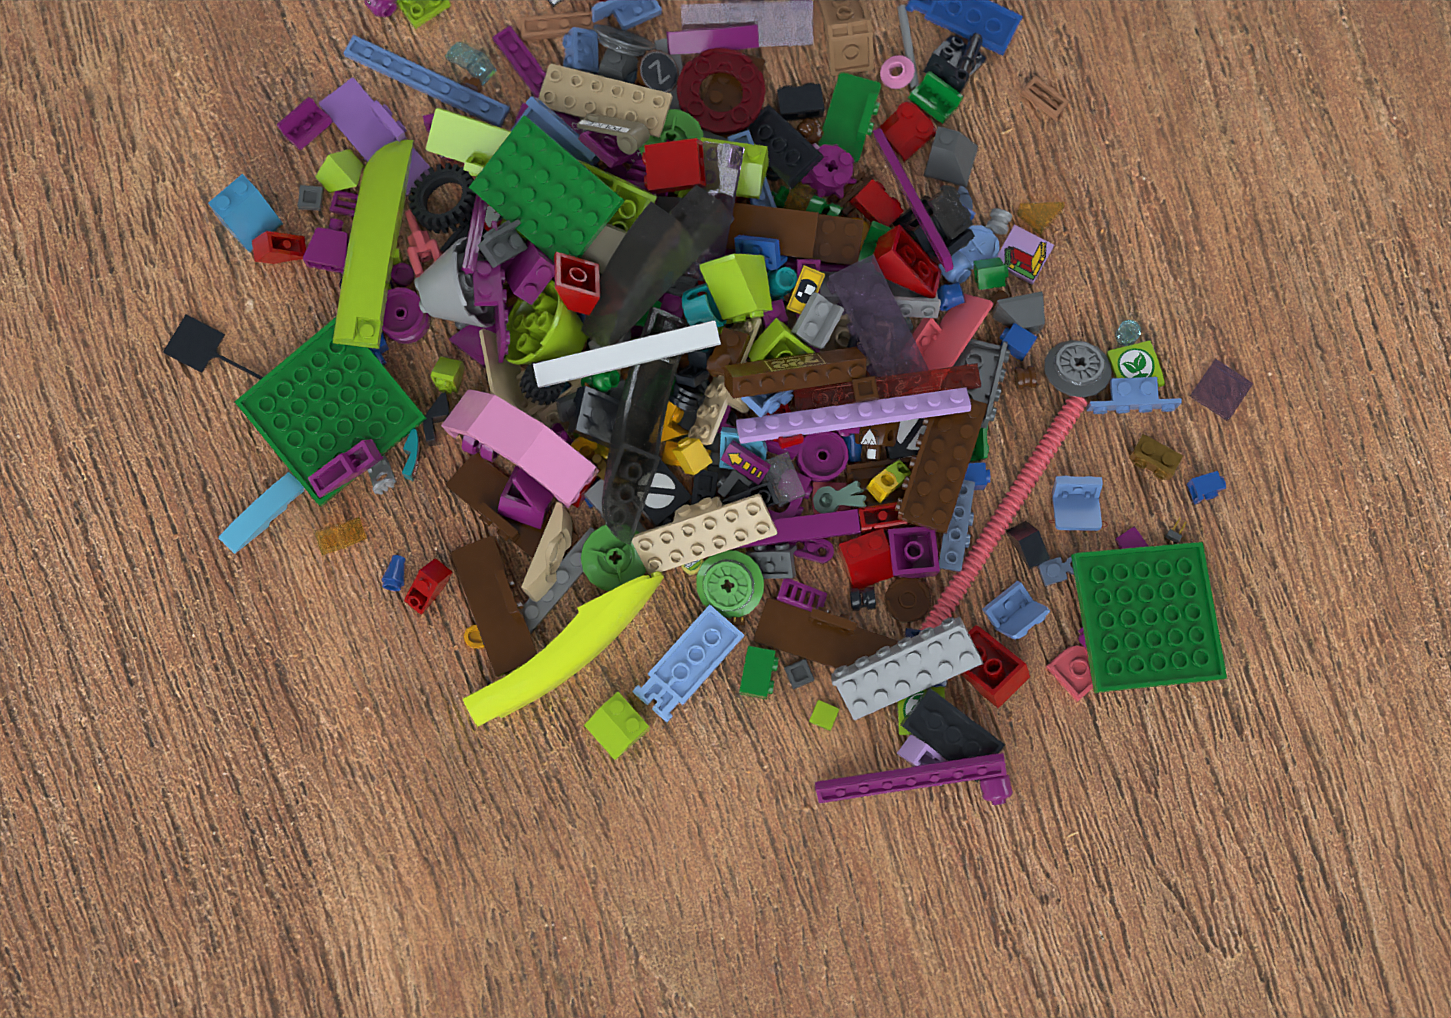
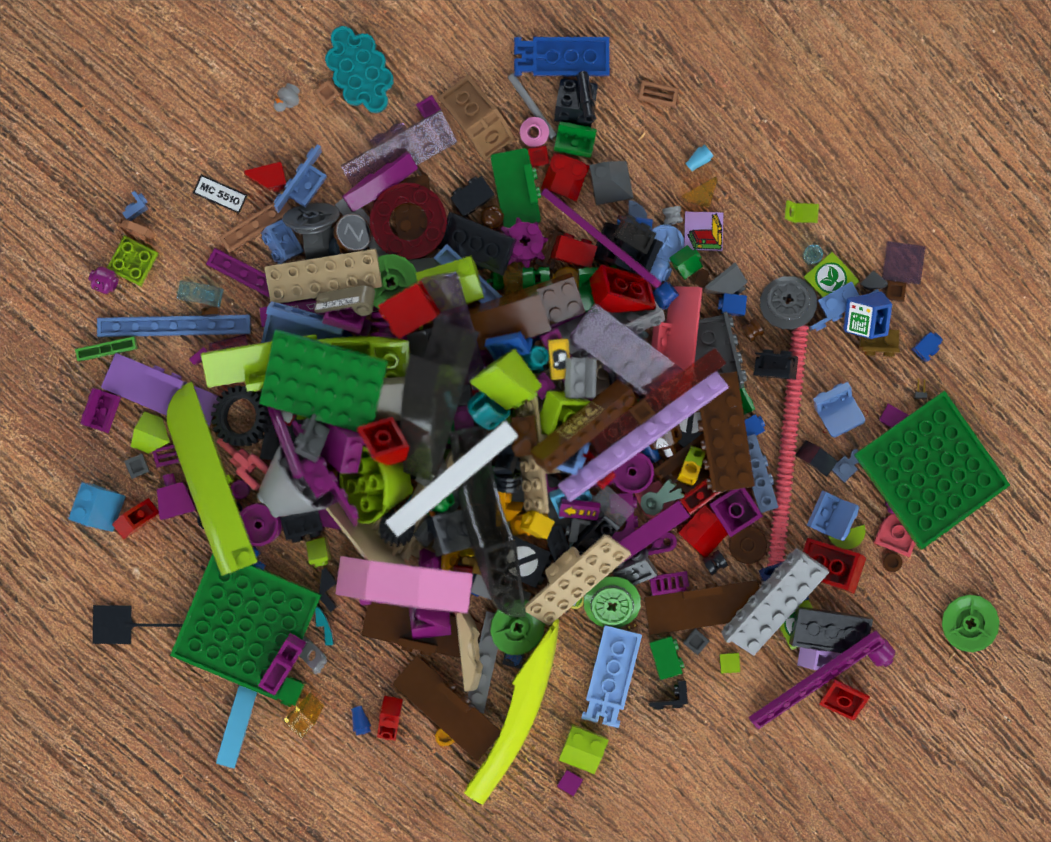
camera: 25 degrees left, 10 degrees up
(339, 504) = (291, 691): none -> green brick
(345, 68) = (106, 349): none -> bright green piece
(446, 340) = (302, 525): none -> black bracket
(583, 755) = (570, 782): none -> magenta tile
(591, 591) = (513, 660): none -> tile
(755, 716) = (680, 690): none -> black bracket
(889, 98) = (538, 156): none -> red tile
(930, 817) = (843, 699): none -> red slope
(1023, 647) = (853, 539): none -> lime tile
(1032, 423) = (776, 365): none -> black hinge
(1056, 179) = (699, 158): none -> medium azure cone
(1056, 697) = (892, 562): none -> reddish brown tile
(1129, 806) = (984, 619): none -> bright green piece
(1137, 285) = (801, 212): none -> lime bracket
(1157, 419) = (868, 315): none -> blue slope
(1180, 390) = (873, 281): none -> dark grey tile
(1198, 414) = (895, 291): none -> reddish brown tile

